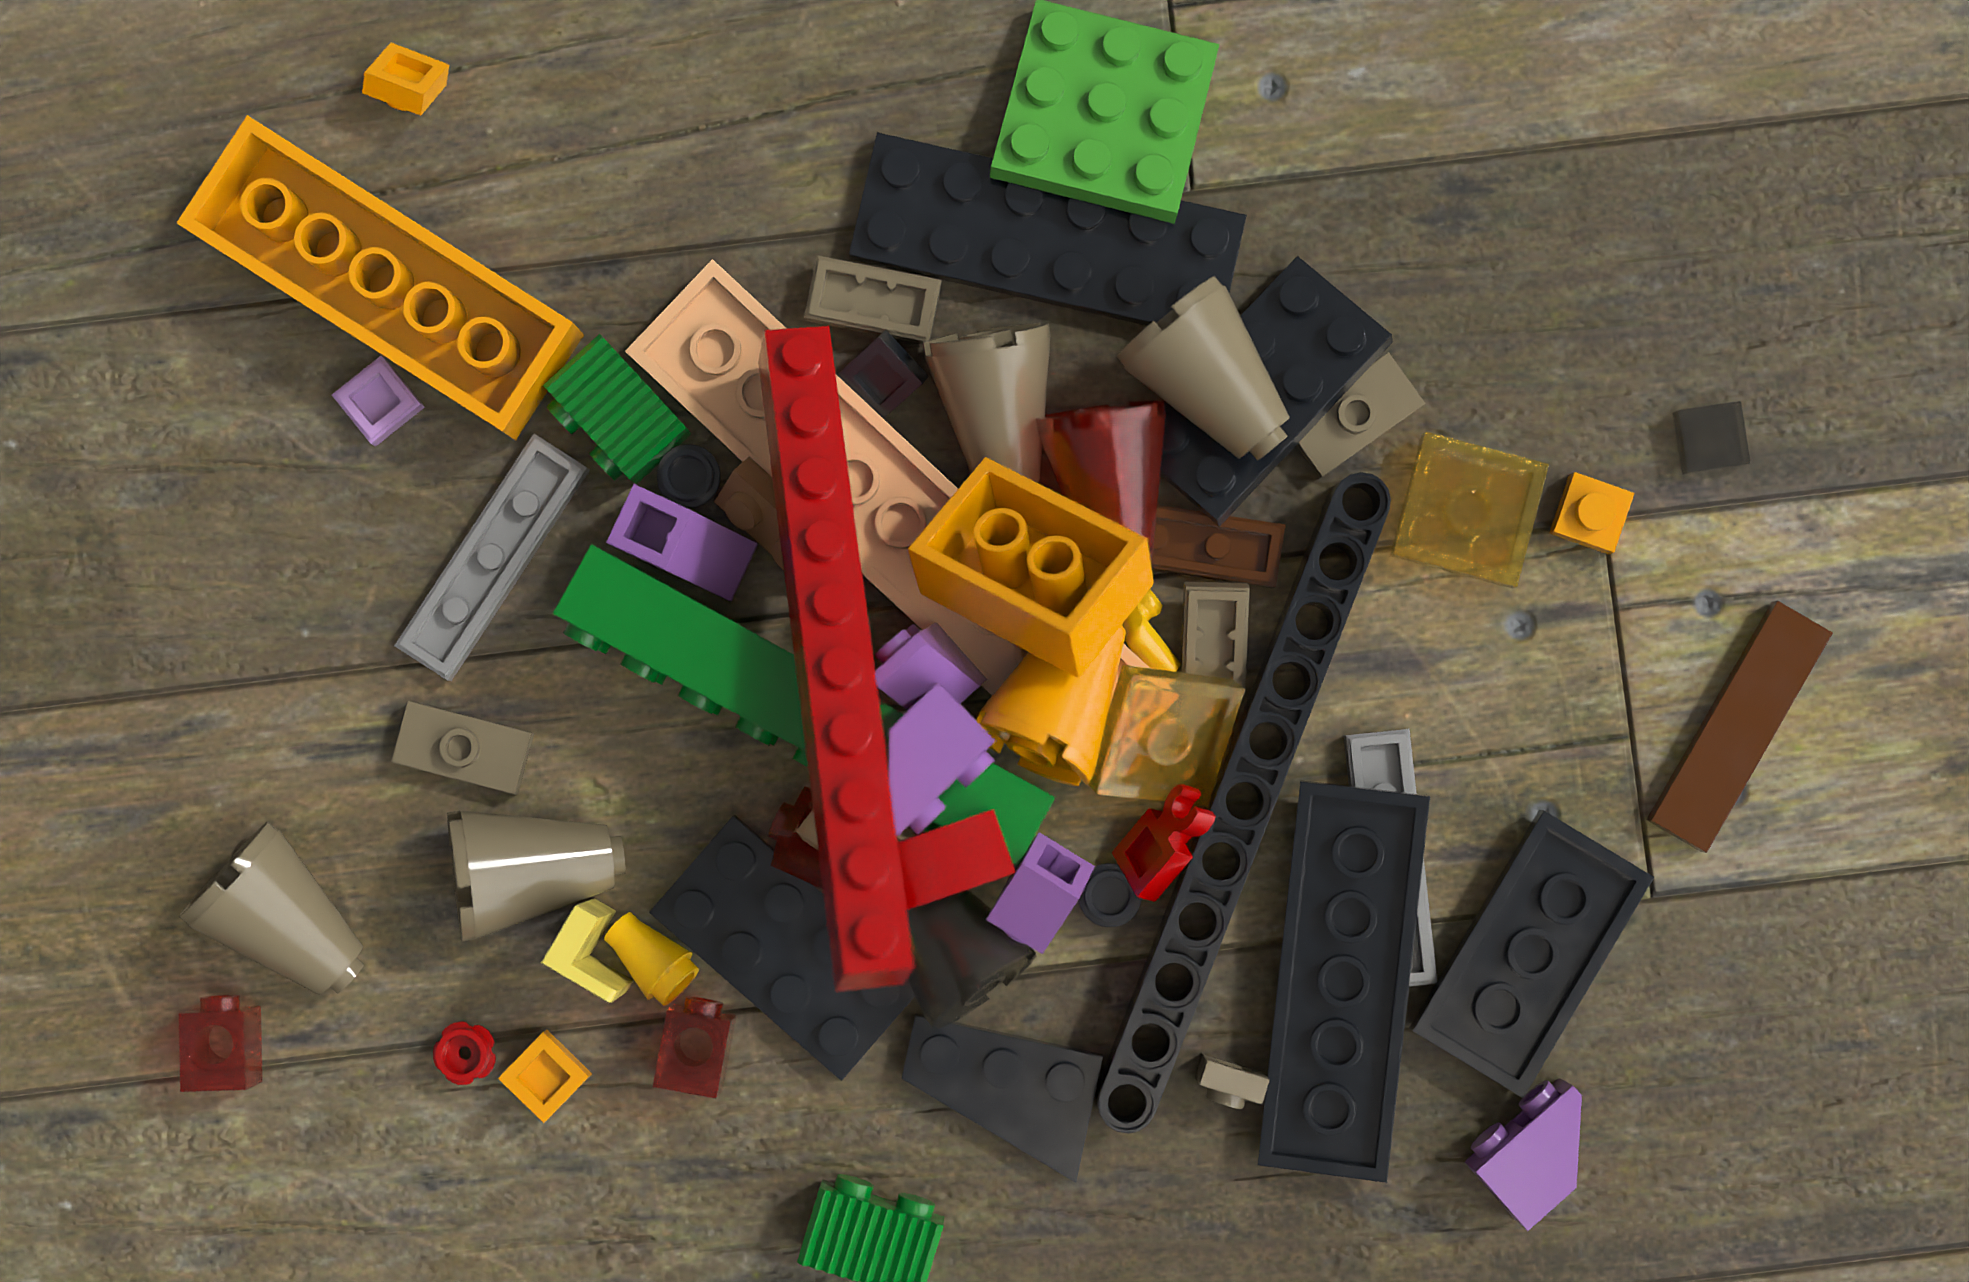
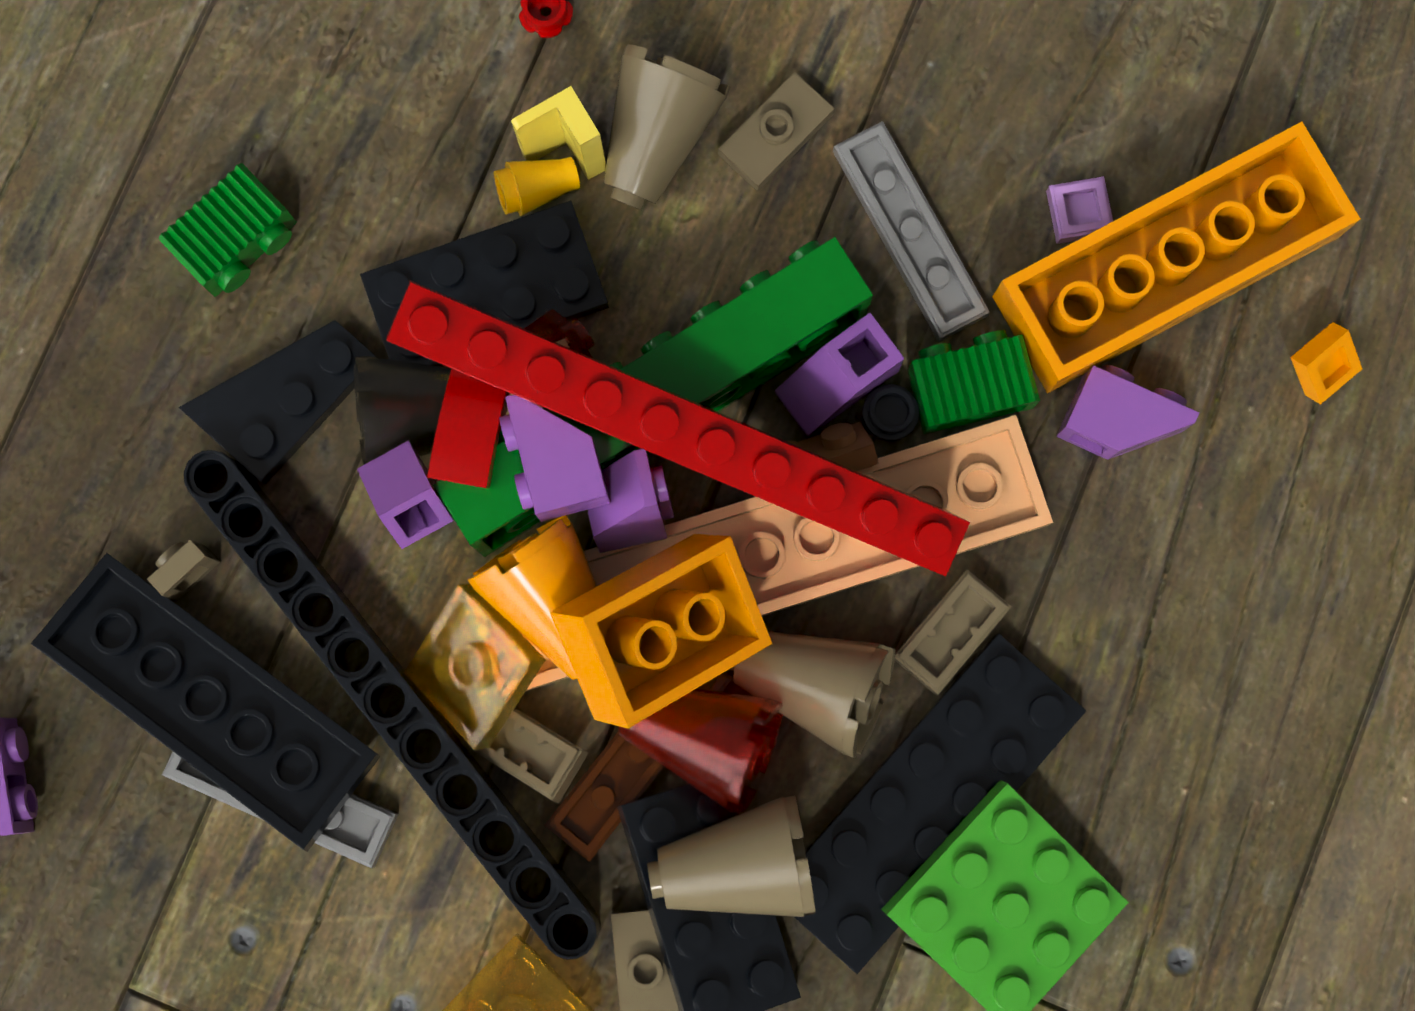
camera: 125 degrees right, 5 degrees down
(545, 1076) = (493, 58): light orange plate -> none
(572, 252) = (1118, 416): none -> medium lavender slope
(681, 1073) = (437, 157): clear red brick -> none
(883, 374) = (886, 606): black plate -> none
(1108, 897) = (379, 557): black plate -> none
(1144, 639) = (557, 696): yellow arm -> none
(1156, 845) = (395, 611): red plate -> none
(1531, 953) = (139, 864): black plate -> none

